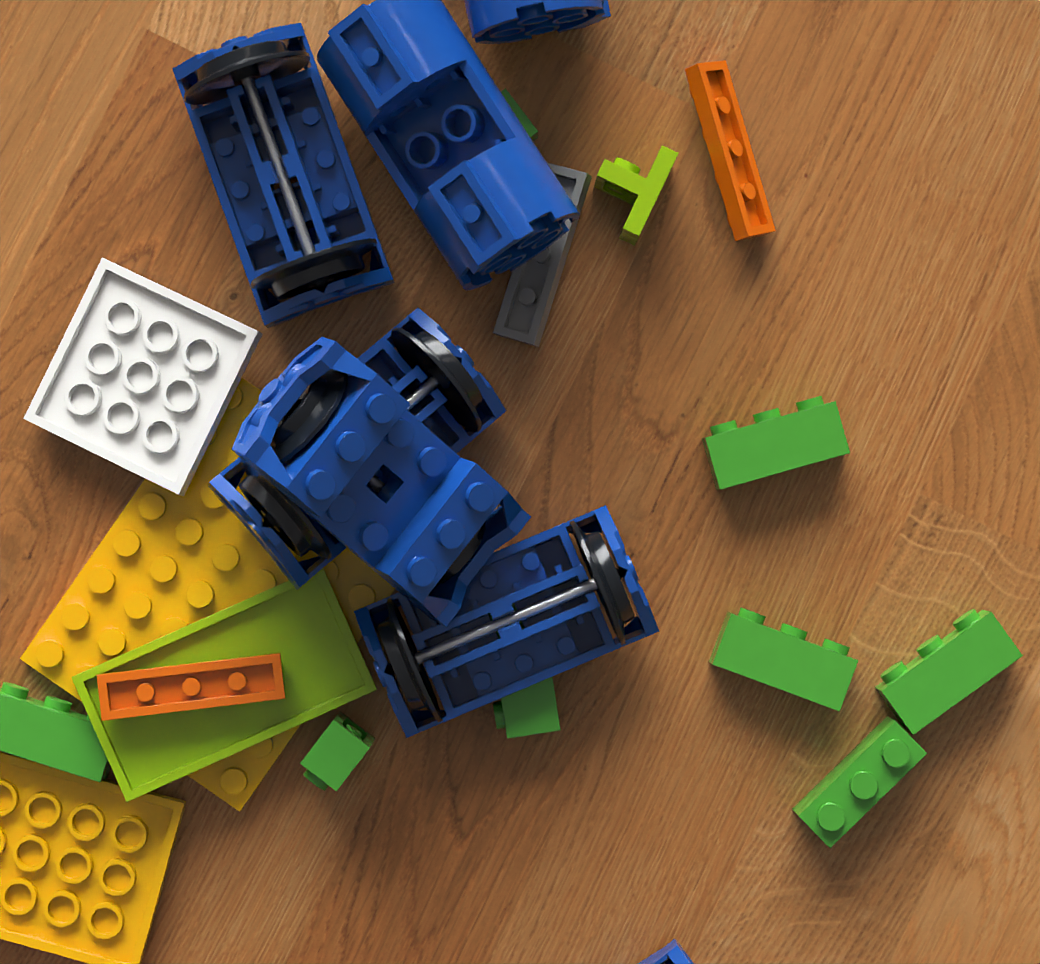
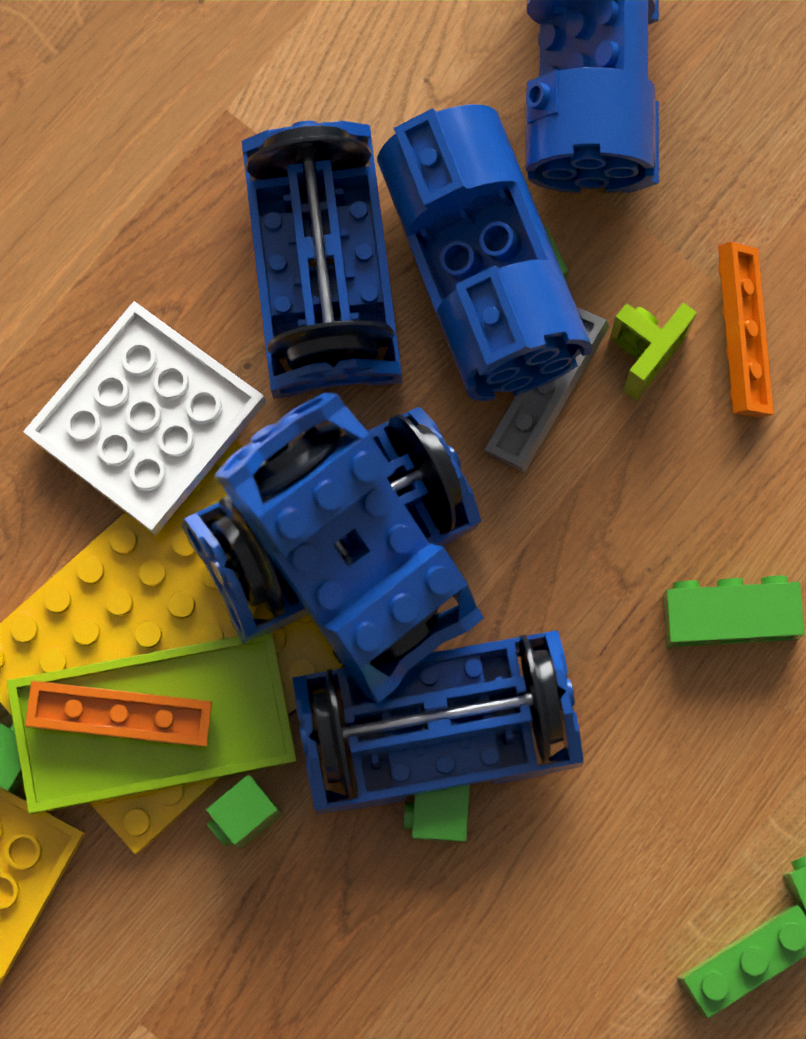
camera: 10 degrees right, 10 degrees down
(784, 658) = (700, 823): bright green brick -> none

